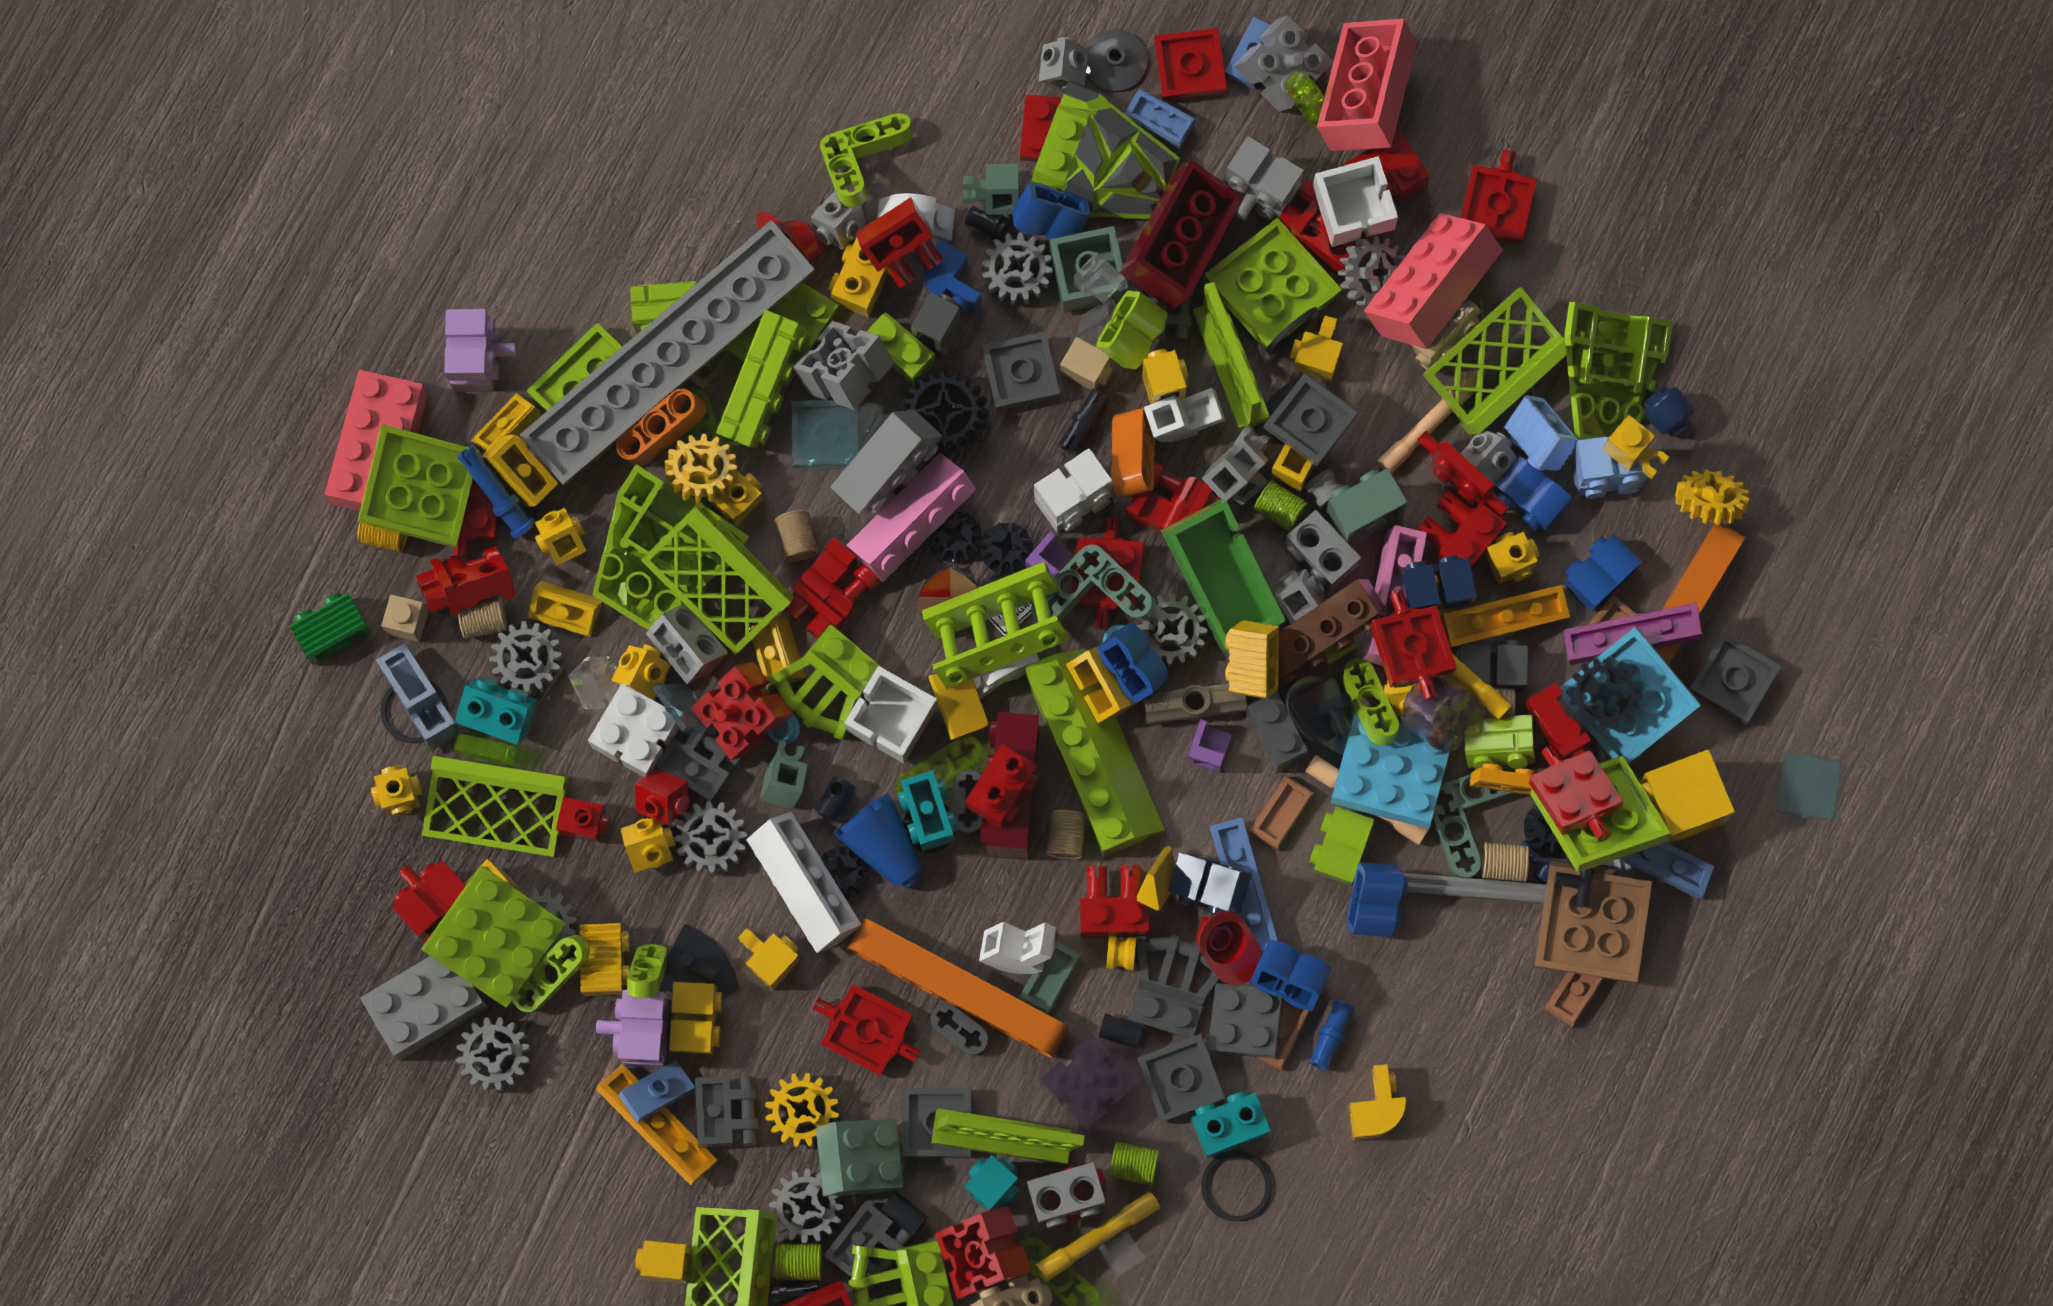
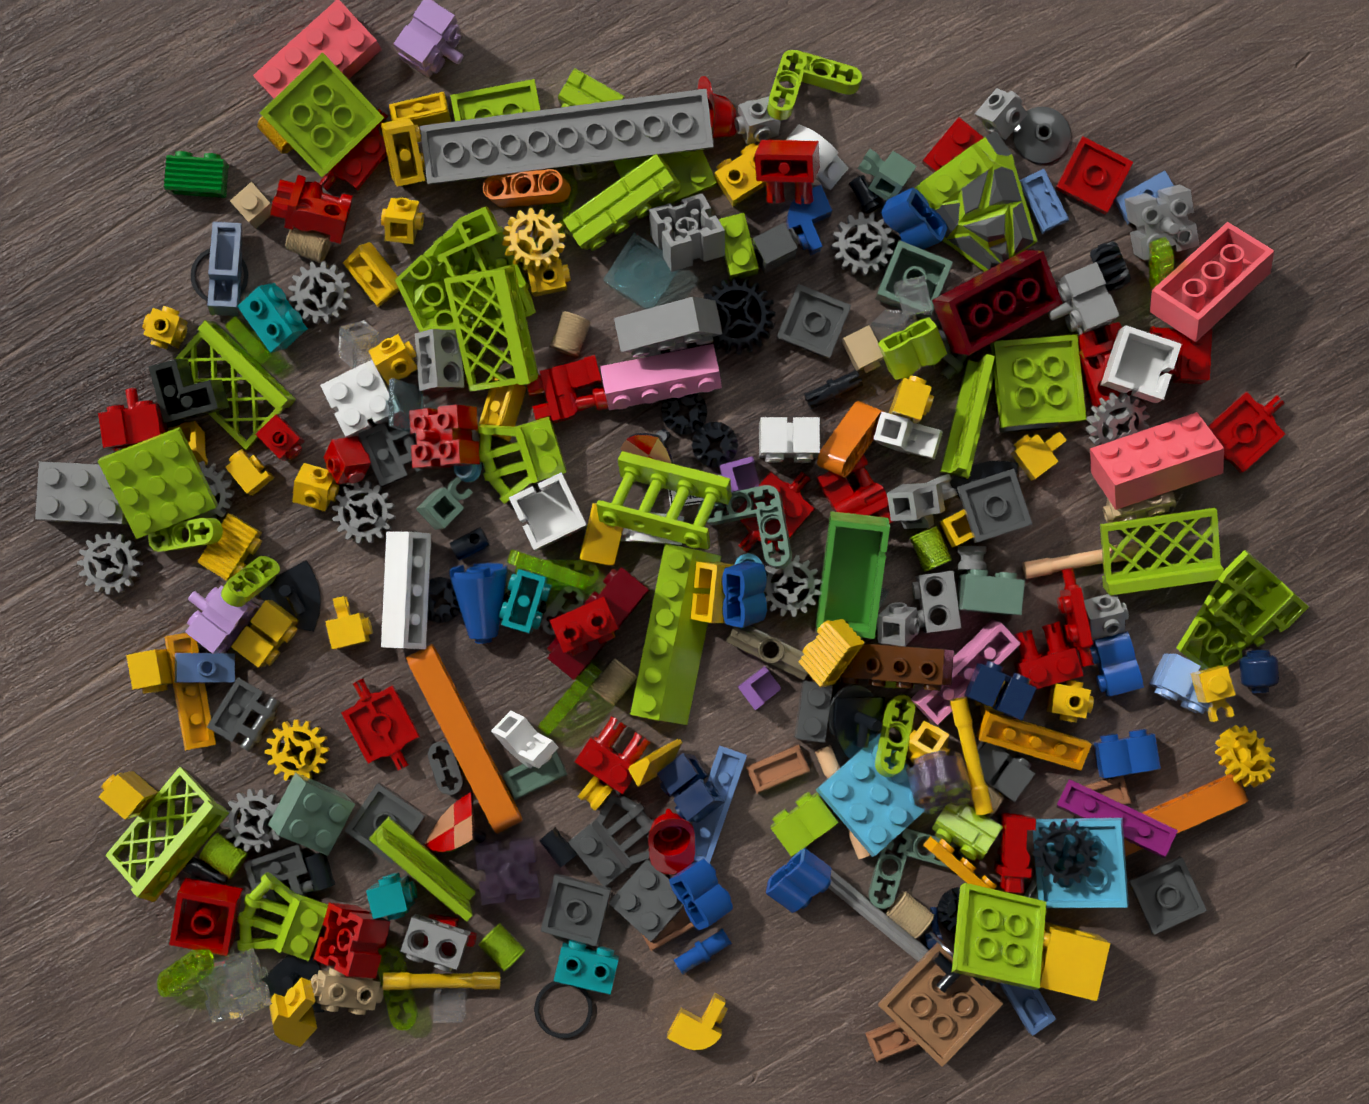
camera: 35 degrees right, 10 degrees up
(460, 844) = (180, 397): none -> pearl dark grey brick
(504, 502) = (378, 168): blue pin -> none
(571, 874) = (248, 472): none -> yellow brick
(606, 1125) = (149, 670): none -> yellow brick
(941, 764) = (548, 569): none -> clear neon green beam
(1008, 1078) = (455, 828): none -> shield
(1034, 880) = (569, 699): none -> clear neon green beam
(1265, 131) = (1111, 265): none -> black gear
(1413, 646) = (950, 725): red plate -> none
(1541, 434) = (1154, 626): light blue brick -> none
(1576, 792) = (992, 911): red plate -> none
(1808, 786) = (1164, 1006): clear light blue piece -> none

